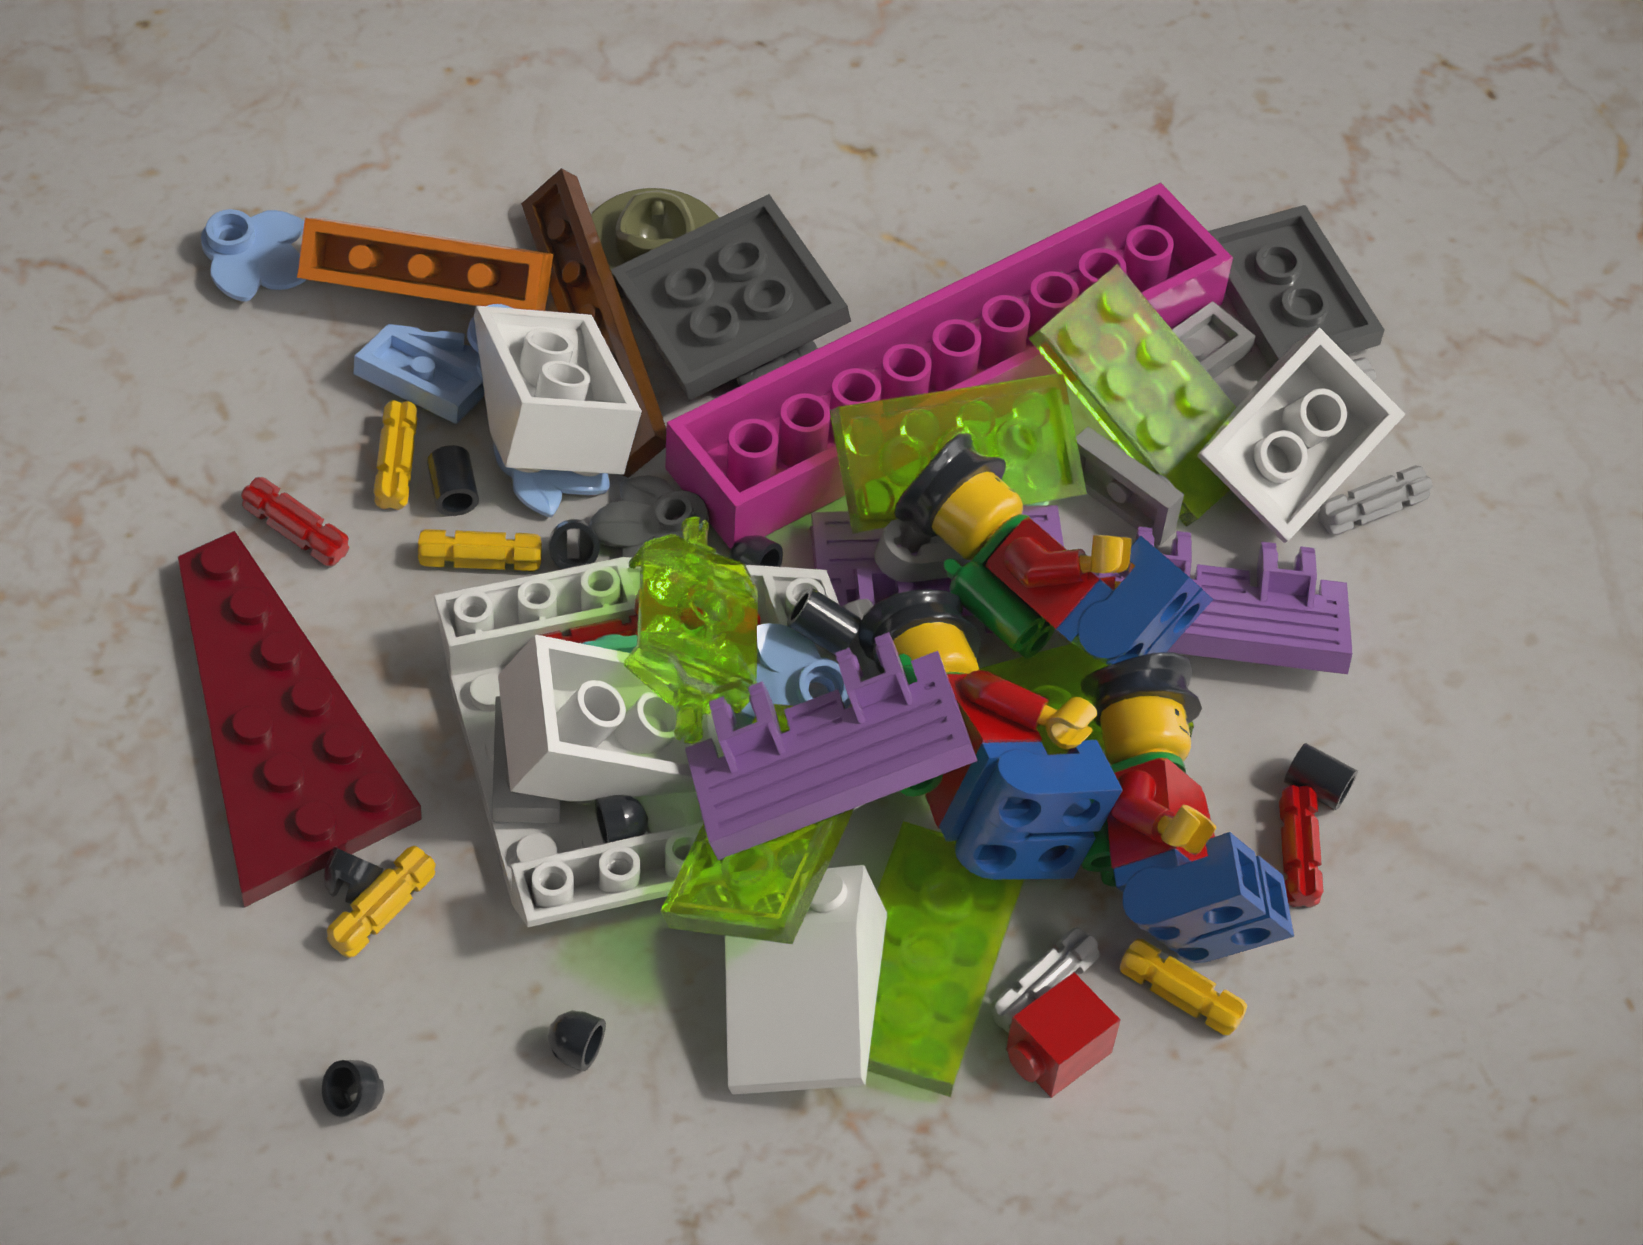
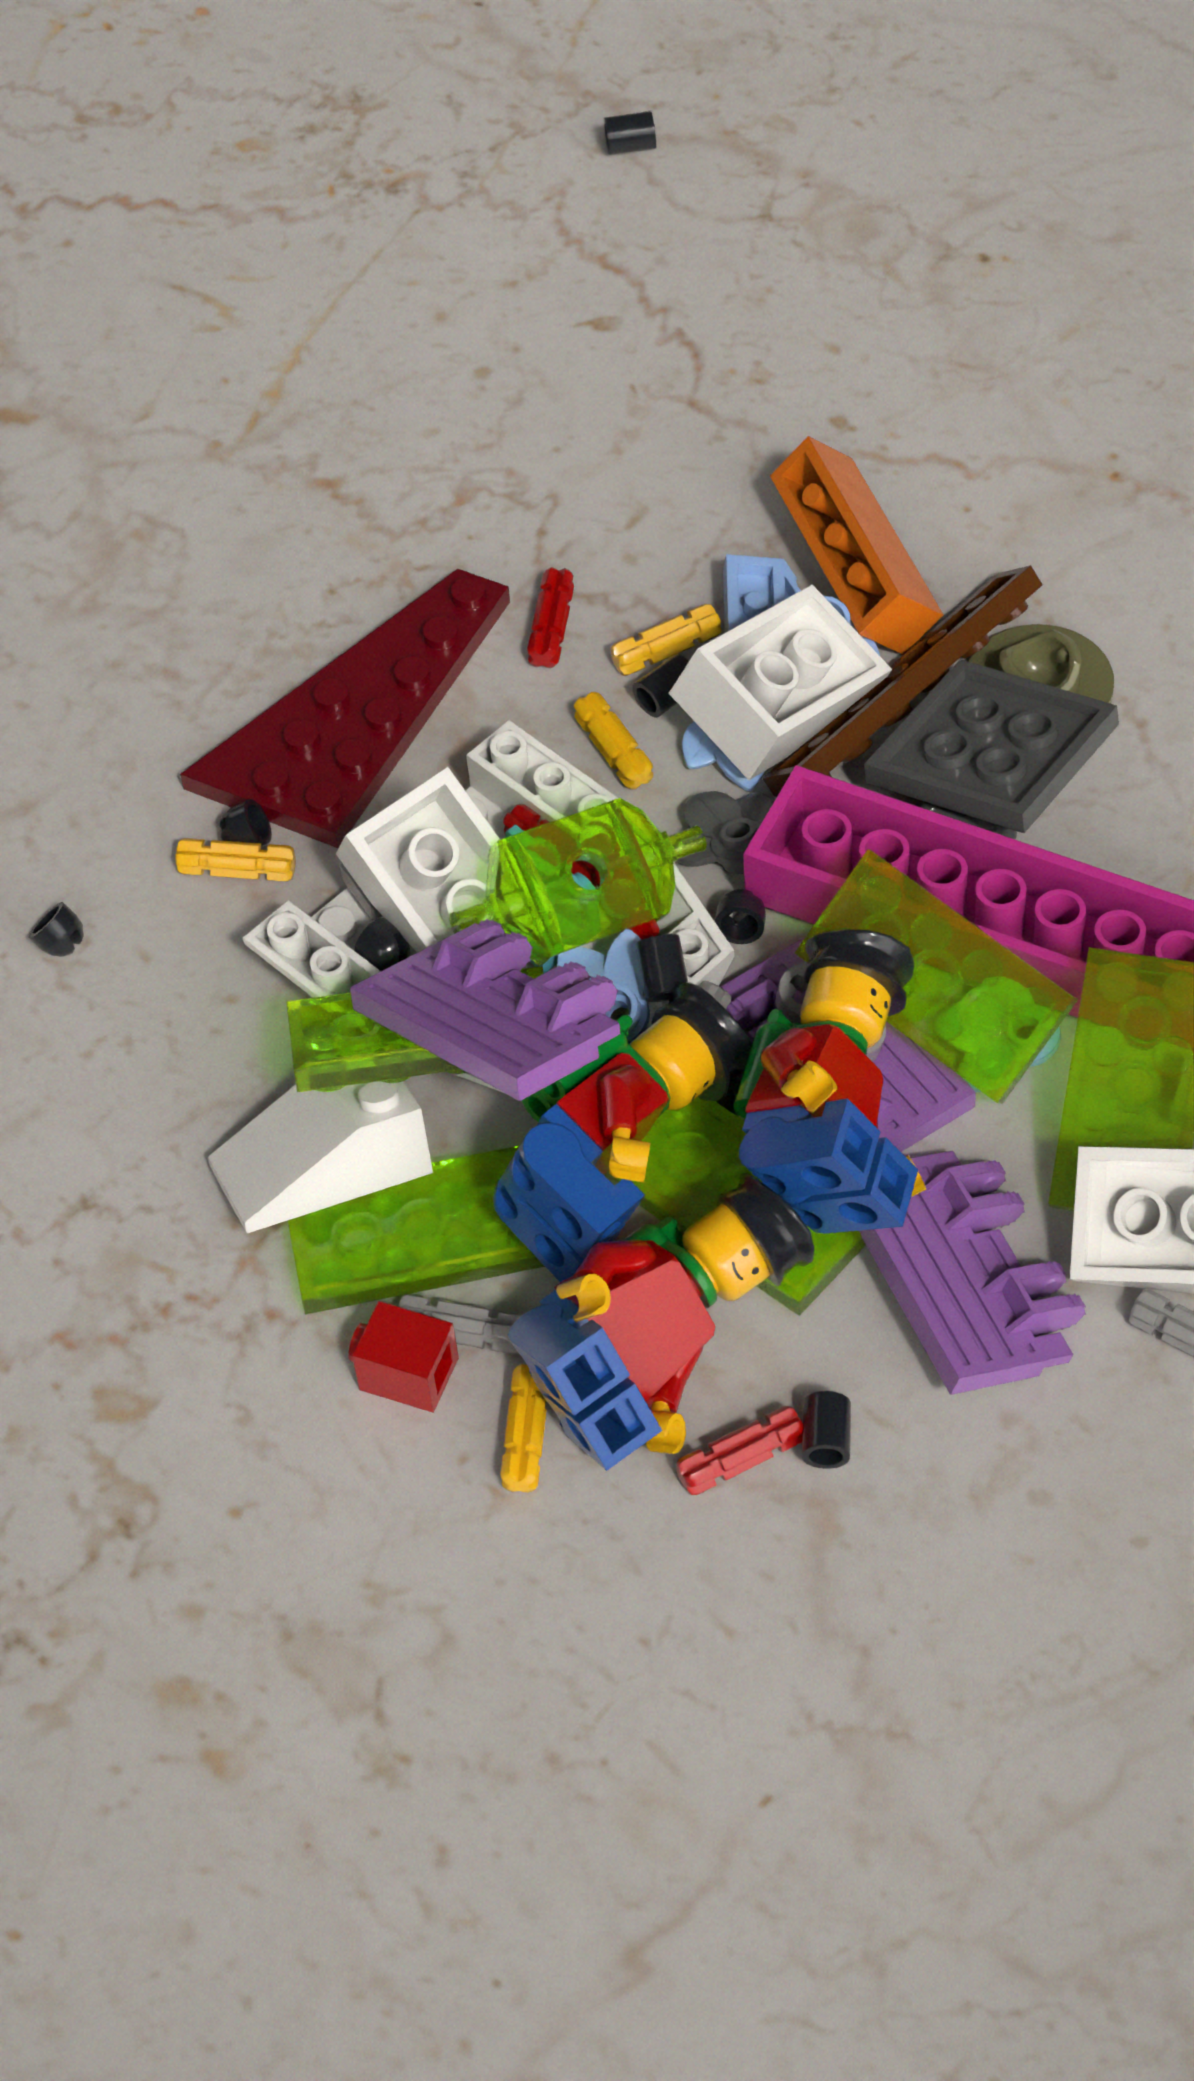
camera: 70 degrees right, 0 degrees up
(252, 251) = (786, 431): light blue plate -> none
(577, 1038) = (189, 1042): black hinge -> none
(587, 544) = (654, 786): black hinge -> none
(1128, 486) = (1033, 1150): light grey plate -> none

